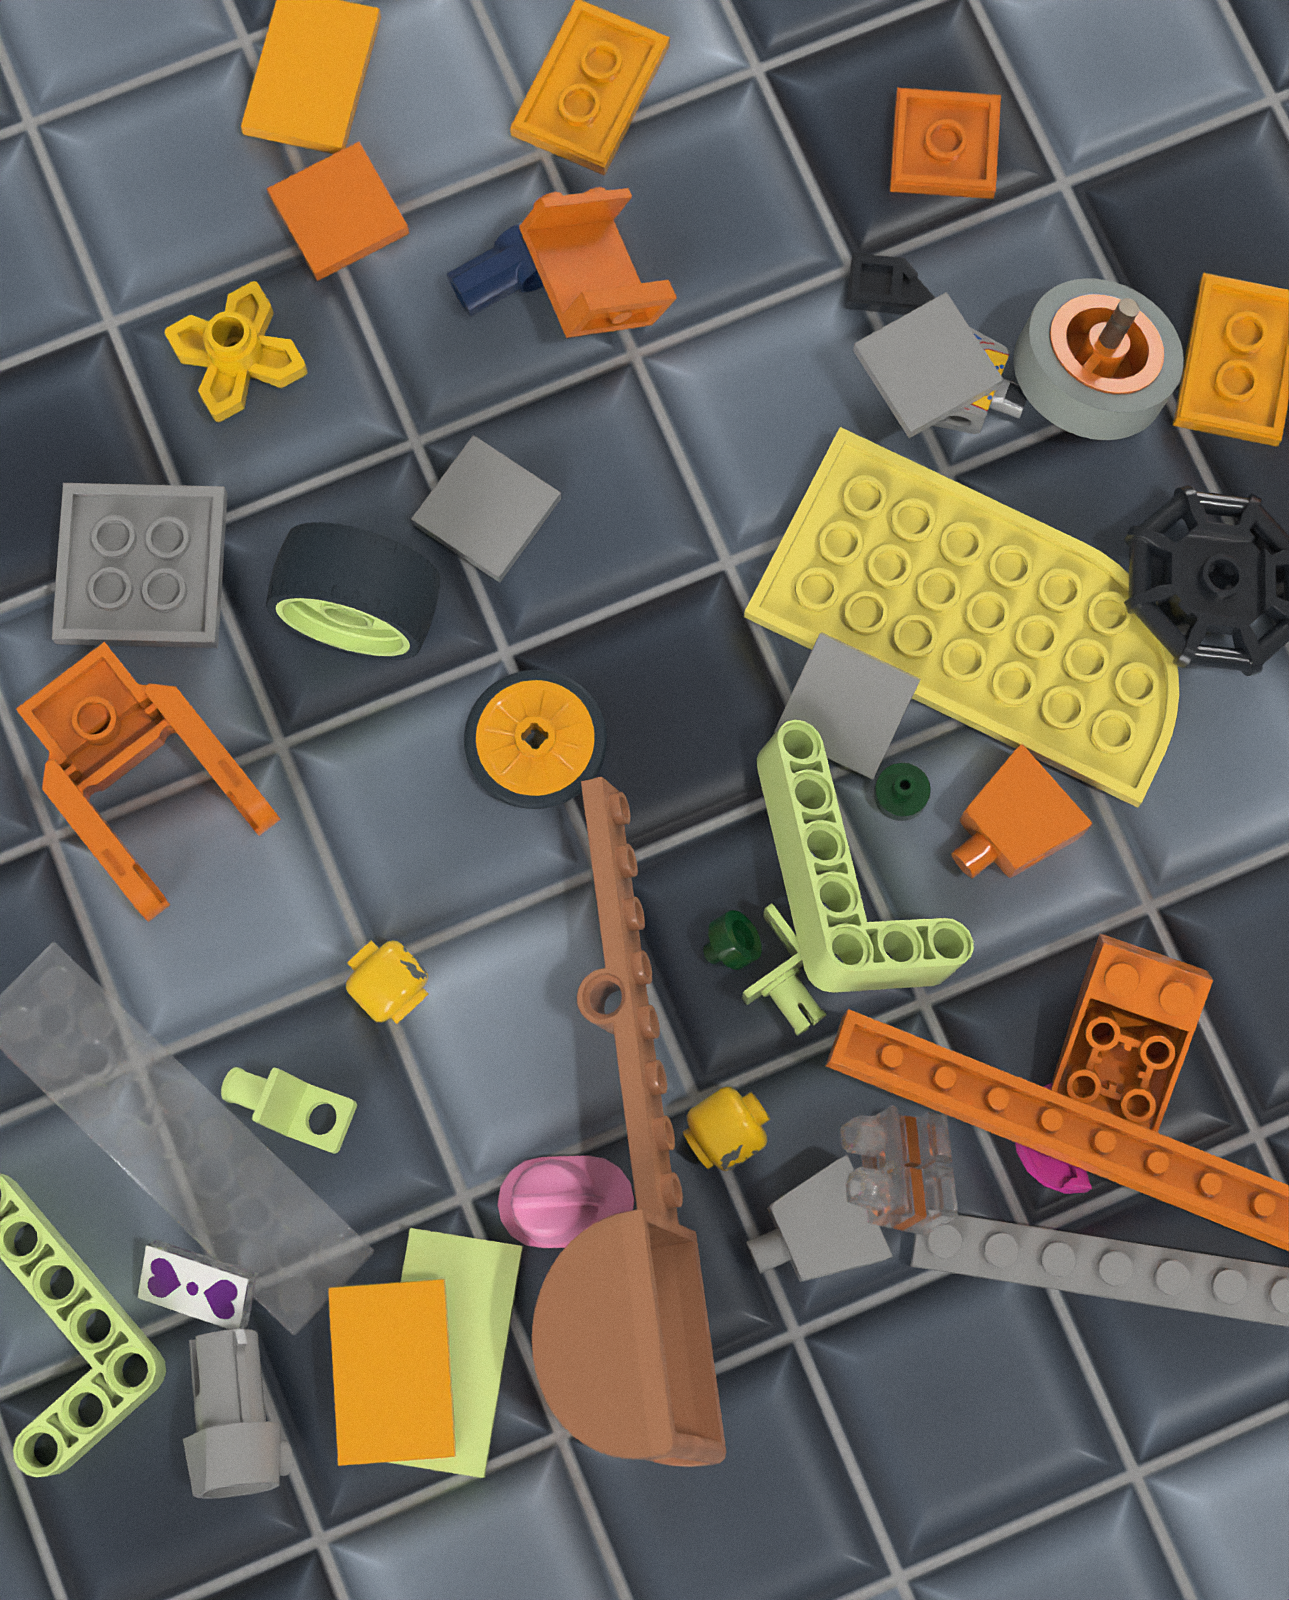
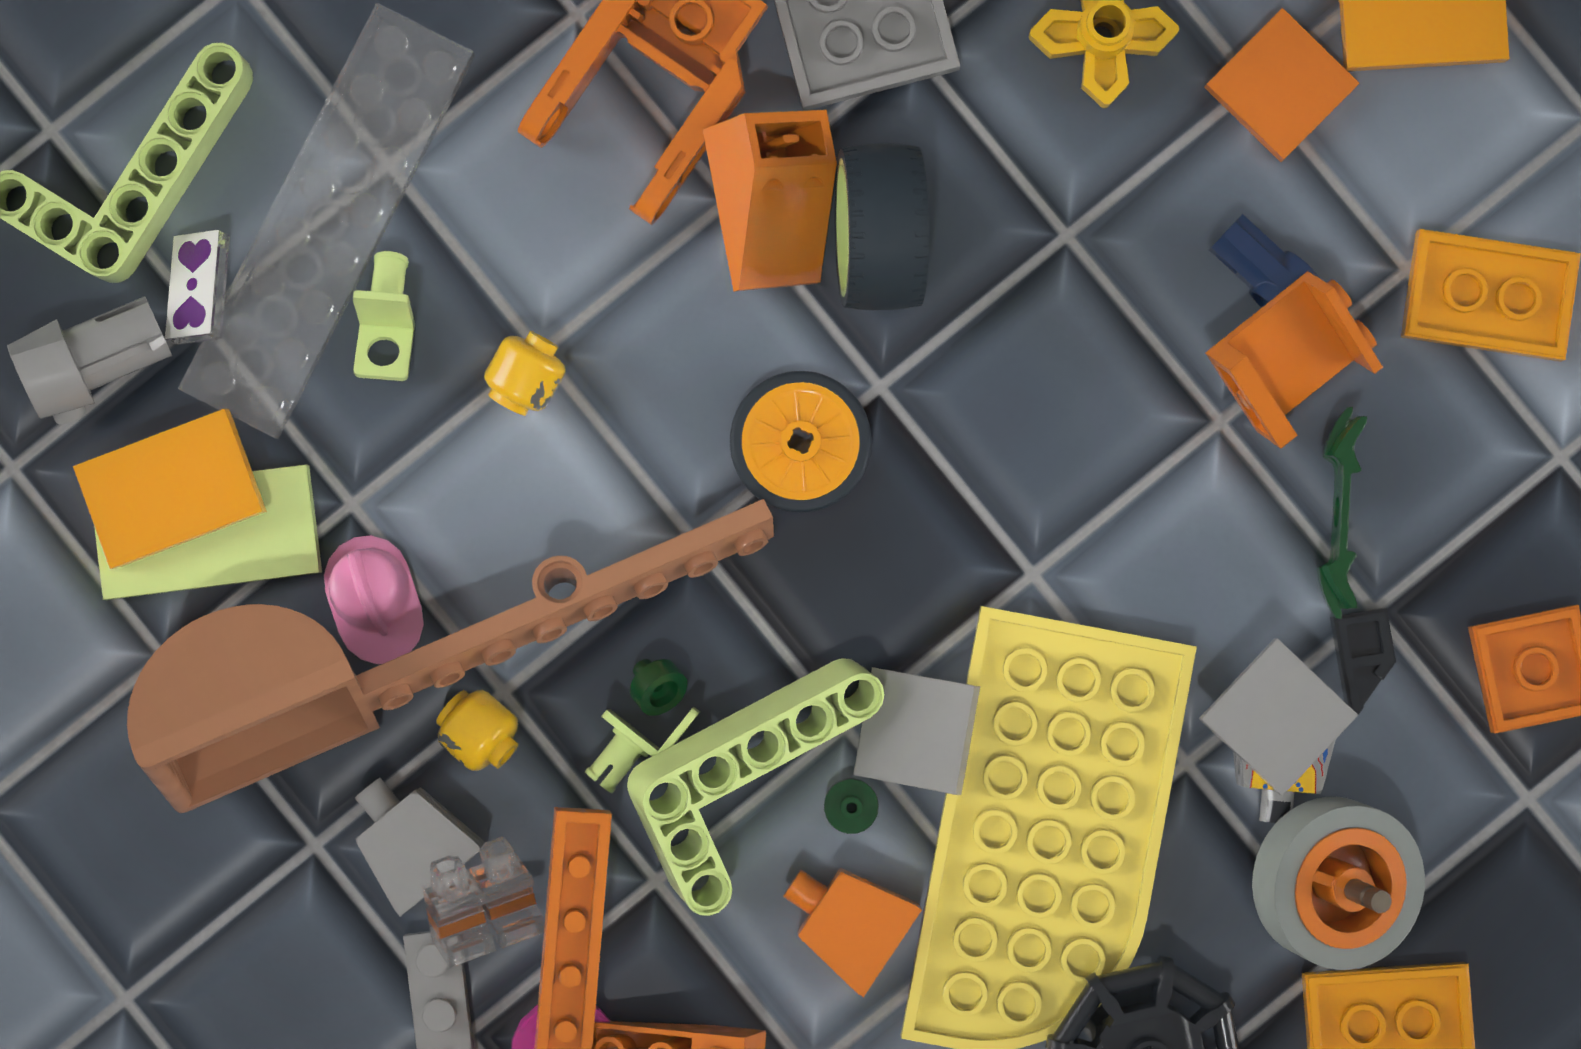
camera: 75 degrees right, 10 degrees up
(288, 688) = (773, 195): none -> orange slope
(486, 508) = (1016, 325): light grey tile -> none
(705, 249) = (1341, 454): none -> dark green piece

